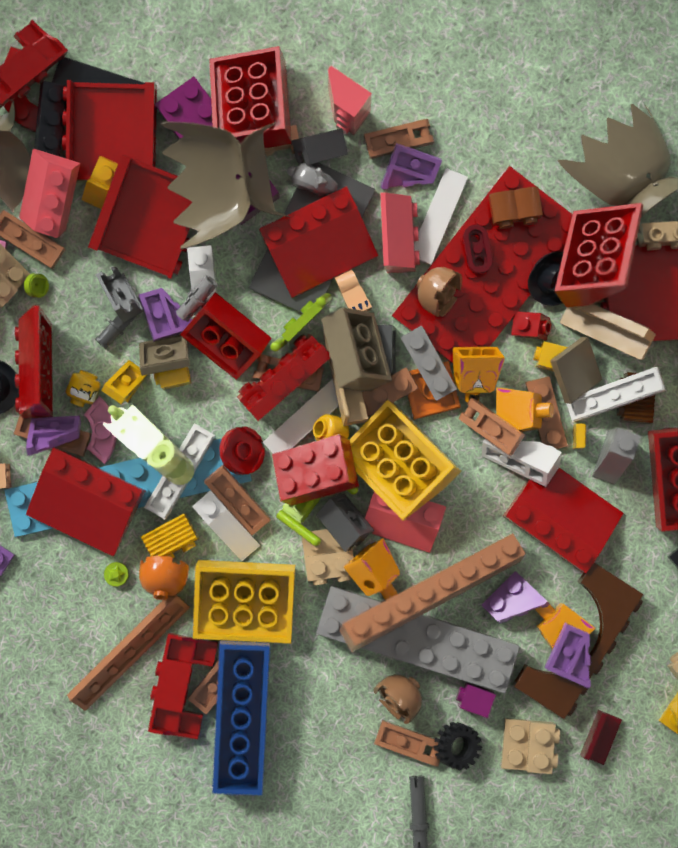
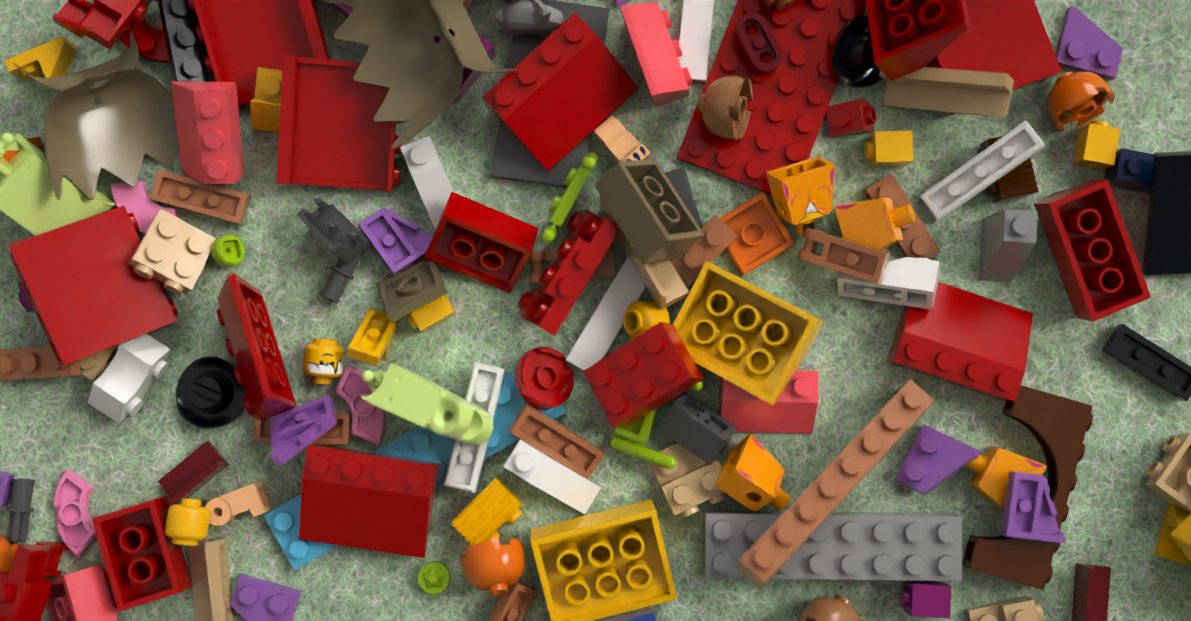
camera: 20 degrees left, 0 degrees up
(196, 298) = (431, 206): light grey pin -> none
(428, 363) = (741, 201): light grey plate -> none
(576, 370) = (924, 155): dark tan tile -> none
(579, 436) = (951, 235): yellow tile -> none

